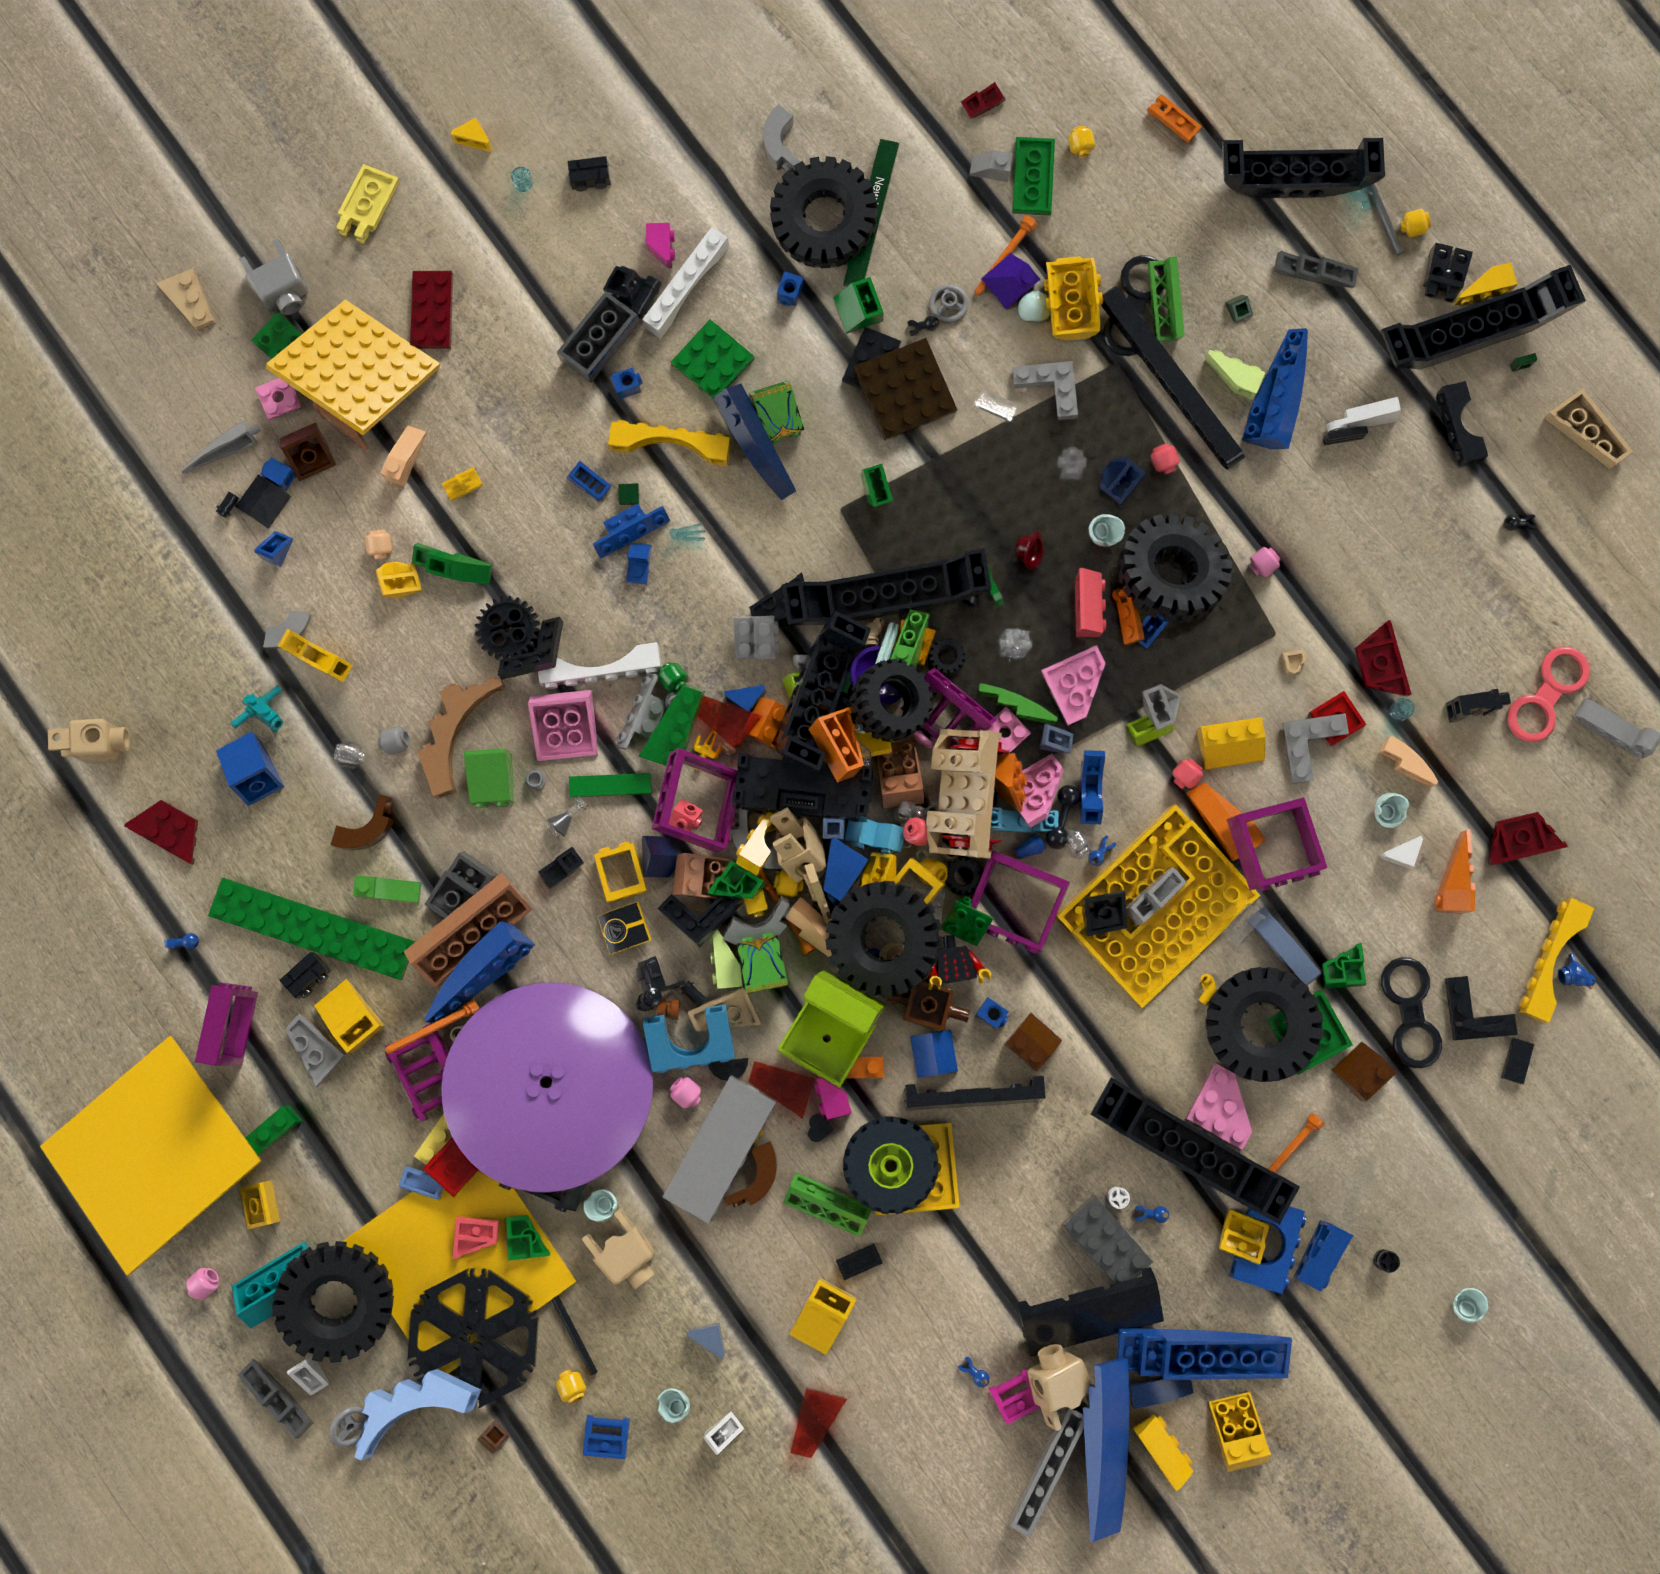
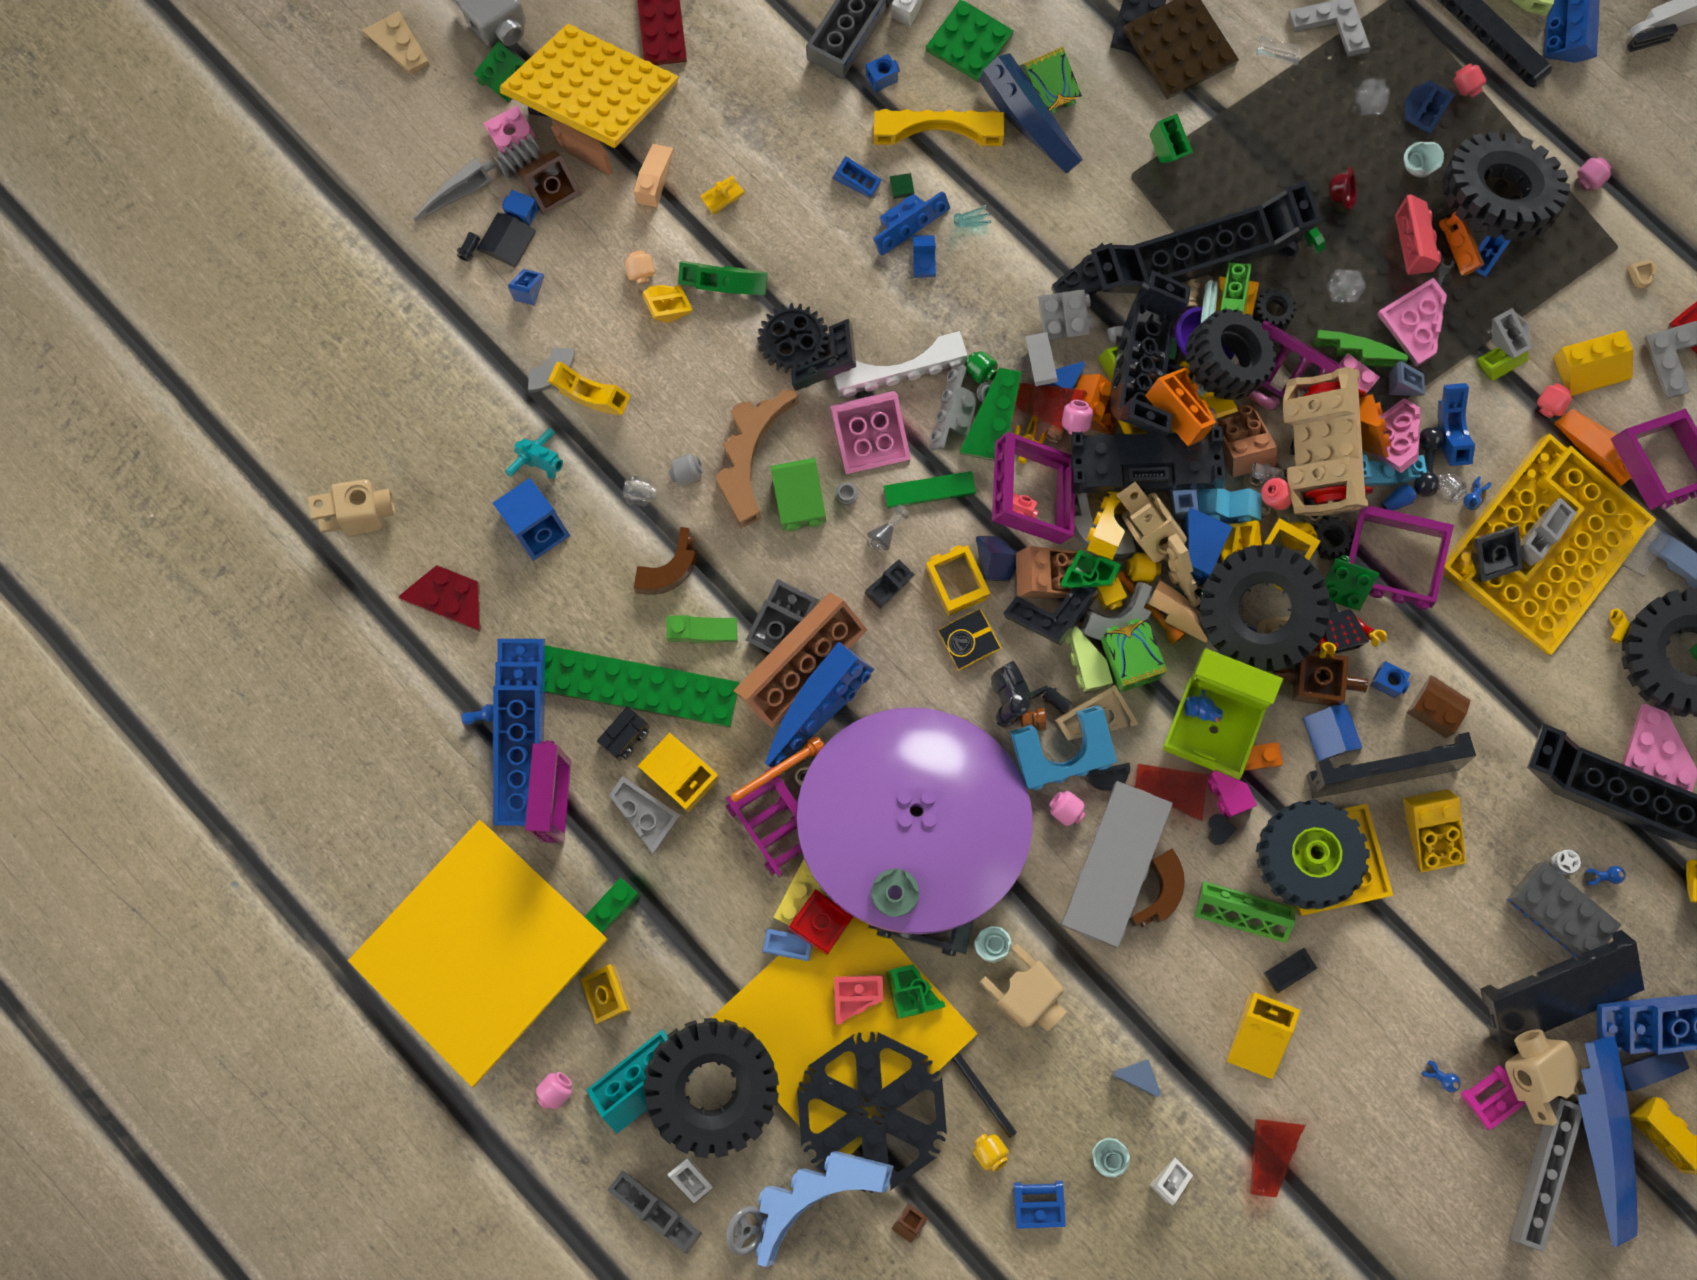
camera: 10 degrees left, 5 degrees down
(212, 948) = (516, 724): none -> blue slope
(281, 424) = (518, 155): none -> light grey piece
(525, 1148) = (891, 878): none -> sand green tile
(725, 678) = (1041, 359): none -> light grey slope
(746, 739) = (1077, 416): none -> bright pink head
(818, 1019) = (1203, 708): none -> blue animal
(1008, 1153) = (1435, 829): none -> yellow slope
(1108, 638) = (1443, 270): none -> dark grey hand

